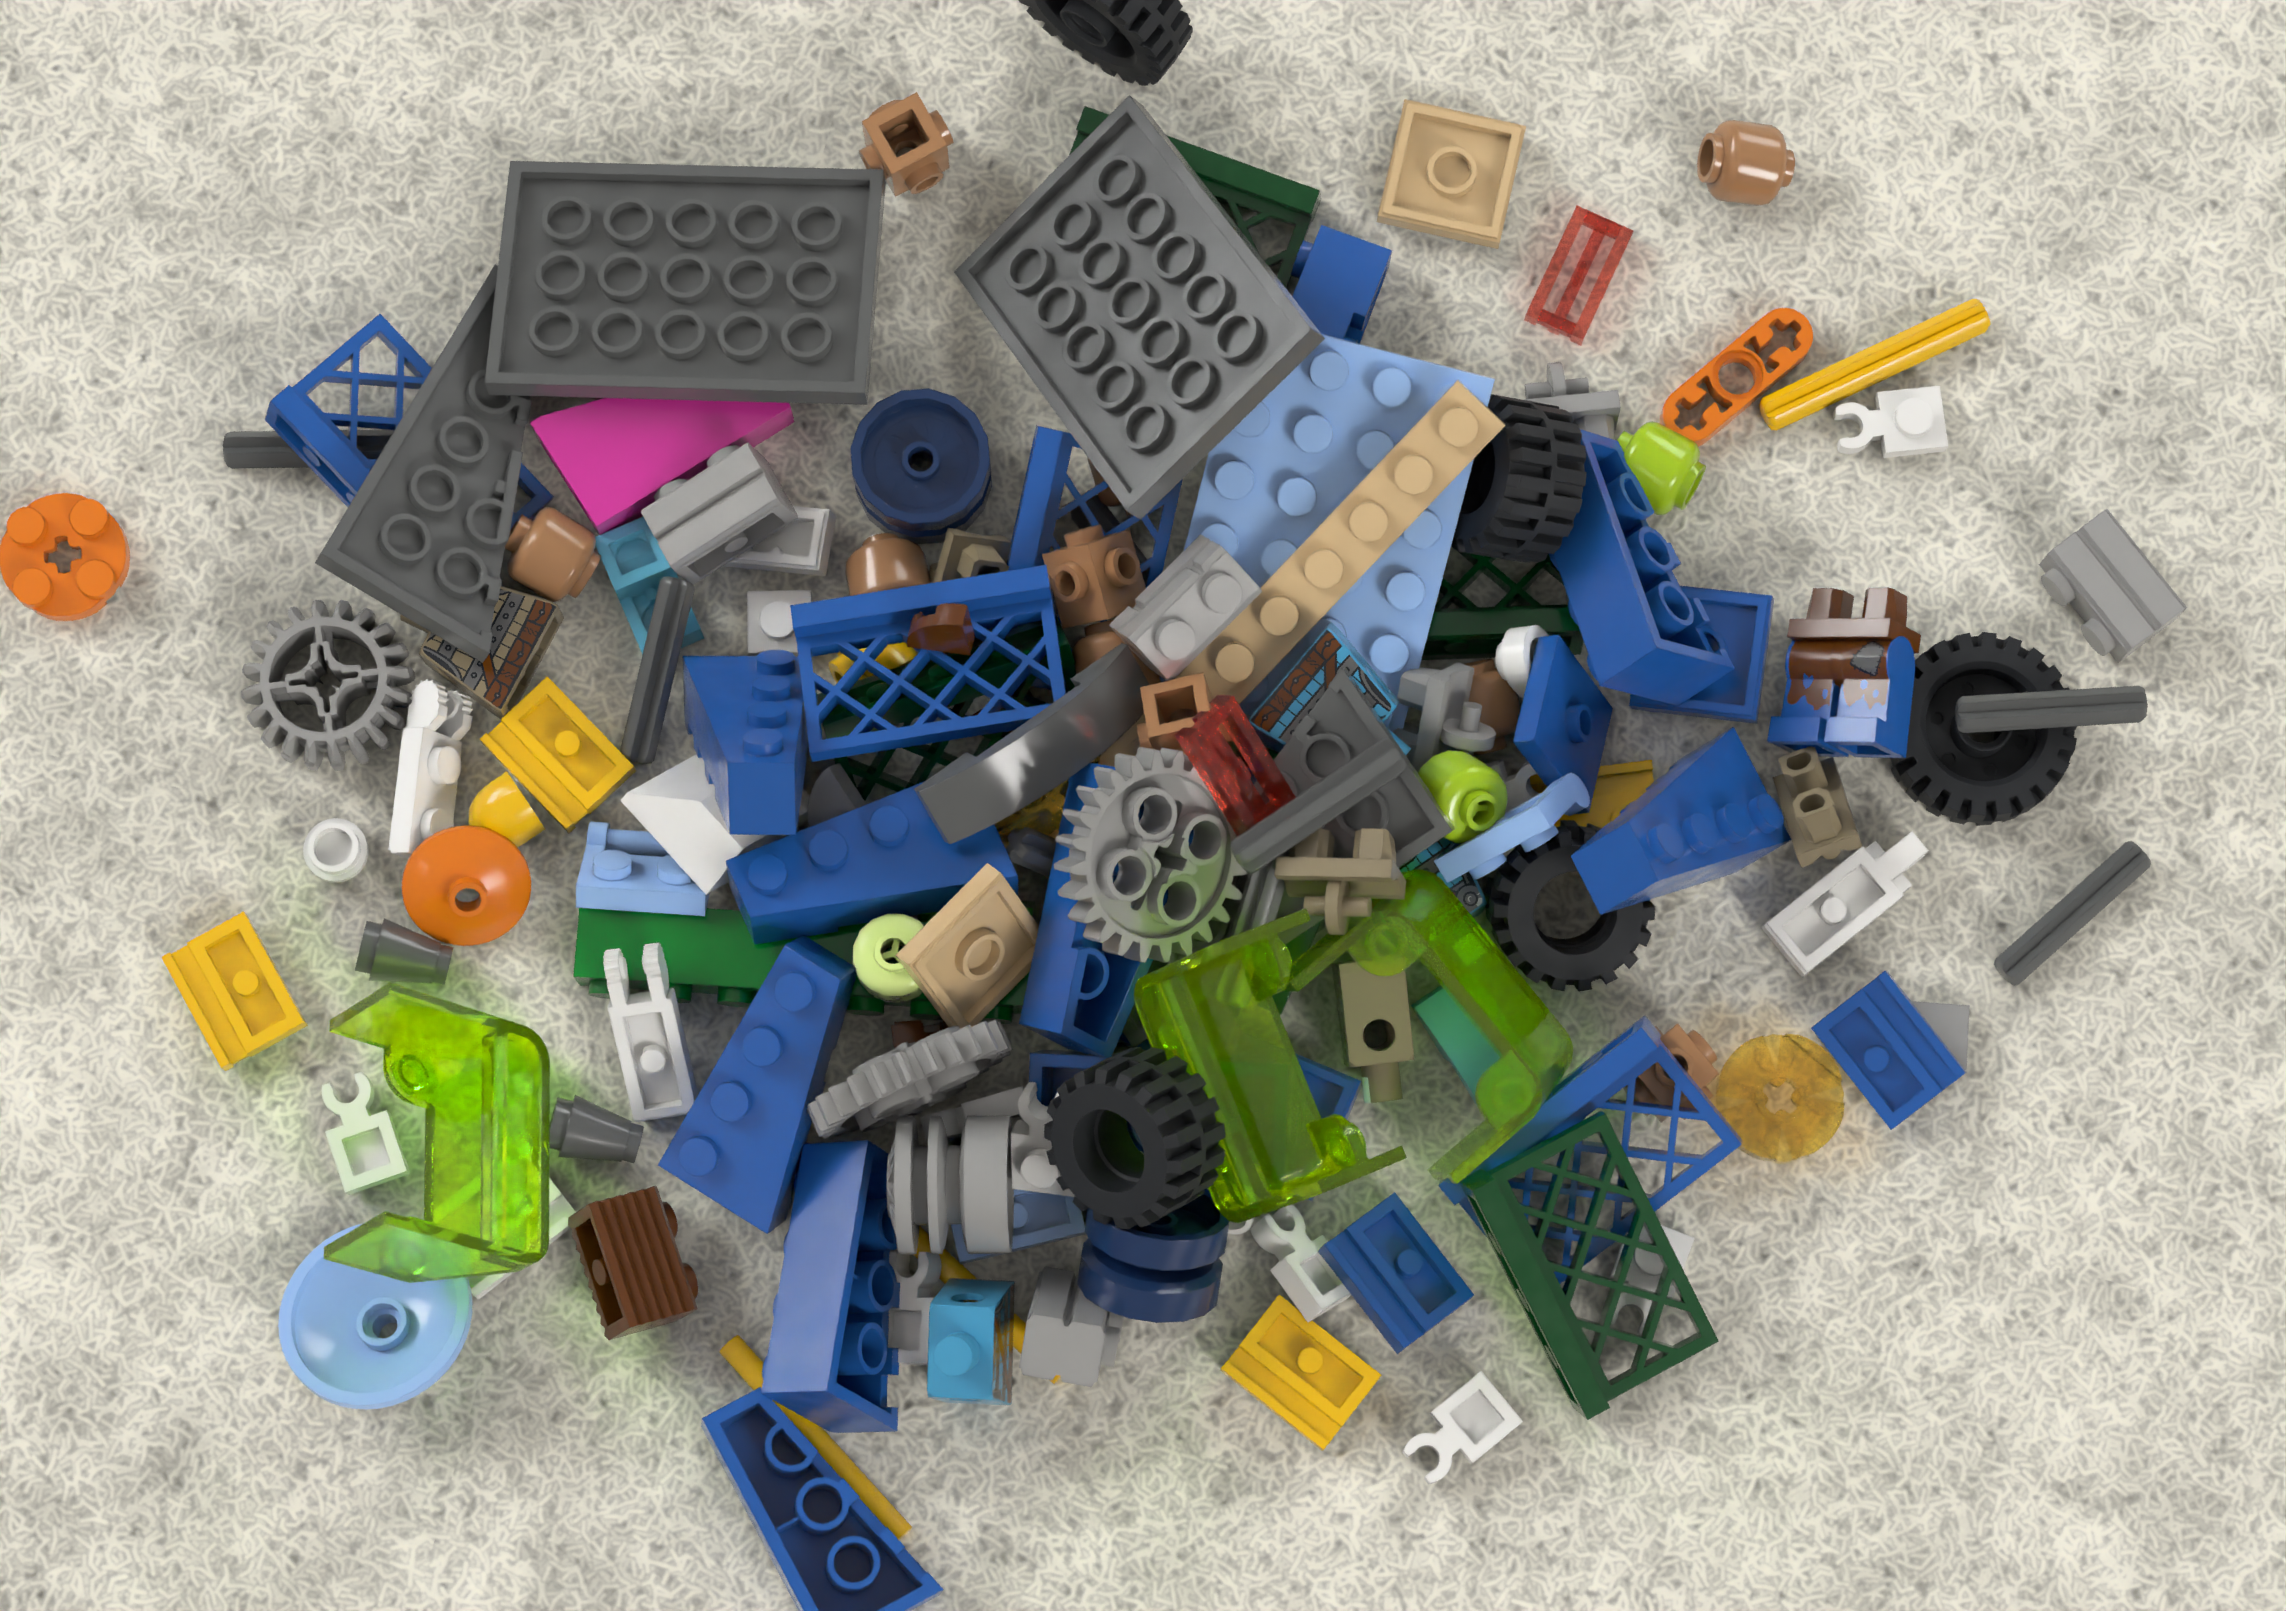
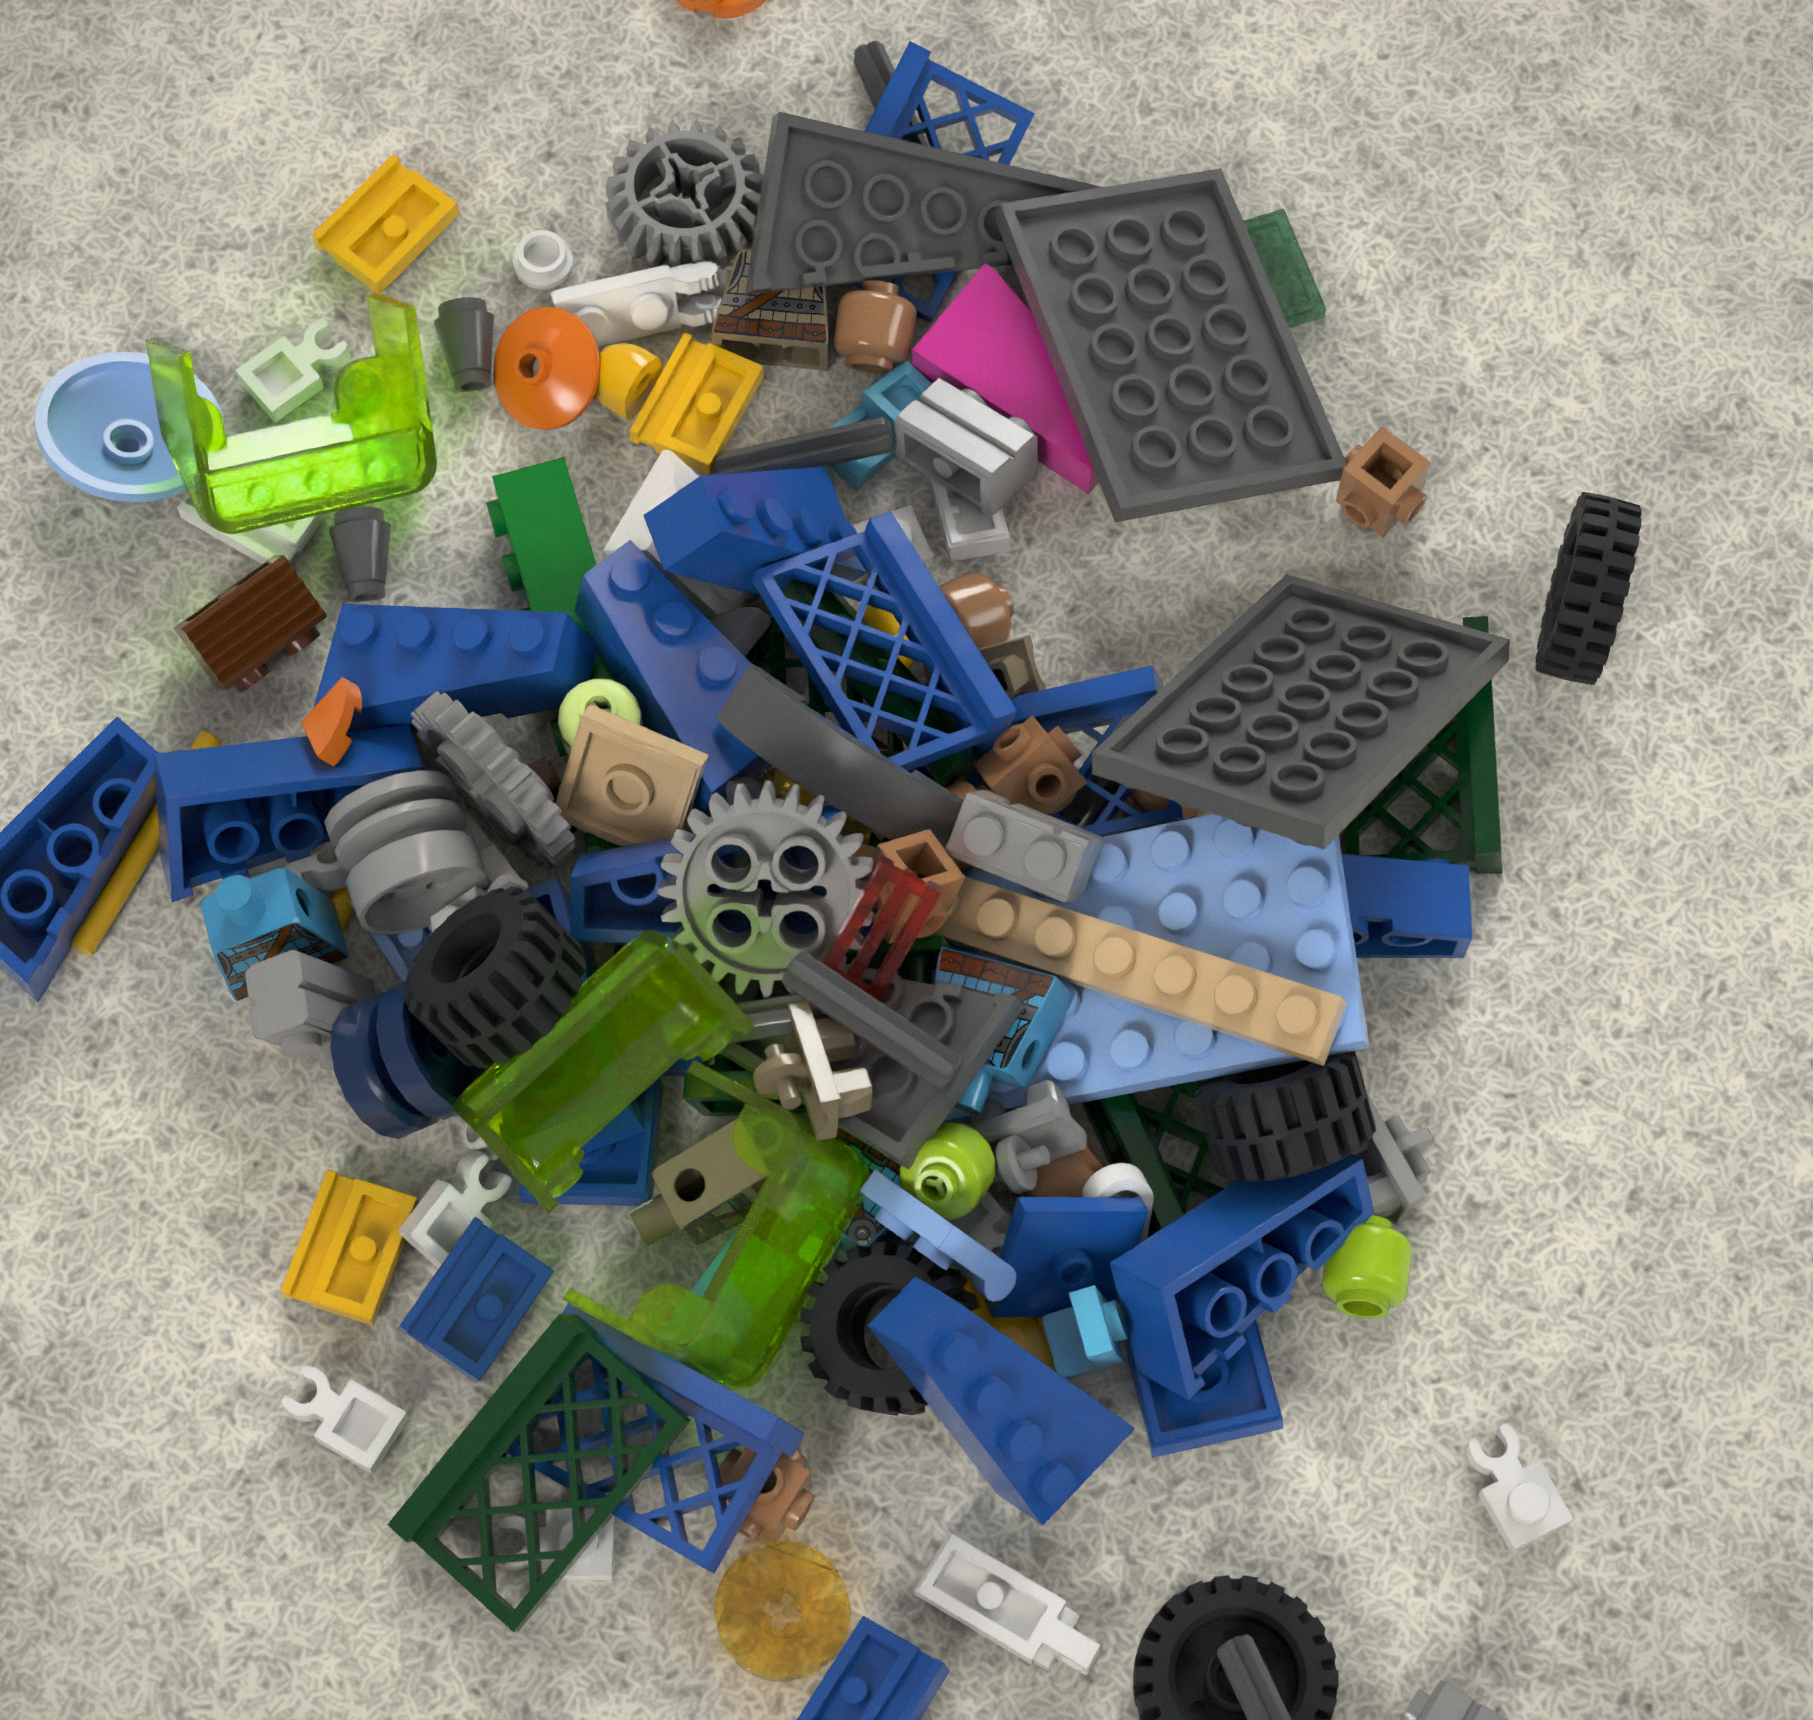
camera: 70 degrees right, 10 degrees down
(631, 142) = (1286, 268): none -> clear green tile
(634, 874) = (596, 490): light blue plate -> none
(650, 1038) = (467, 552): white hinge -> none
(791, 1211) = (330, 720): none -> orange tile
(912, 430) = (1084, 600): dark blue wheel -> none
(944, 631) = (916, 642): reddish brown tile -> none
(1451, 174) = (1578, 977): tan plate -> none
(1557, 321) = (1526, 1157): clear red tile -> none
(1637, 737) = (1086, 1334): none -> medium azure bracket
(1745, 162) = (1714, 1246): medium nougat head -> none
(1758, 335) = (1488, 1290): orange beam -> none
(1815, 806) = (1086, 1538): dark tan hips -> none
(1849, 677) = (1230, 1522): hips -> none
(1874, 364) = (1569, 1449): yellow axle -> none

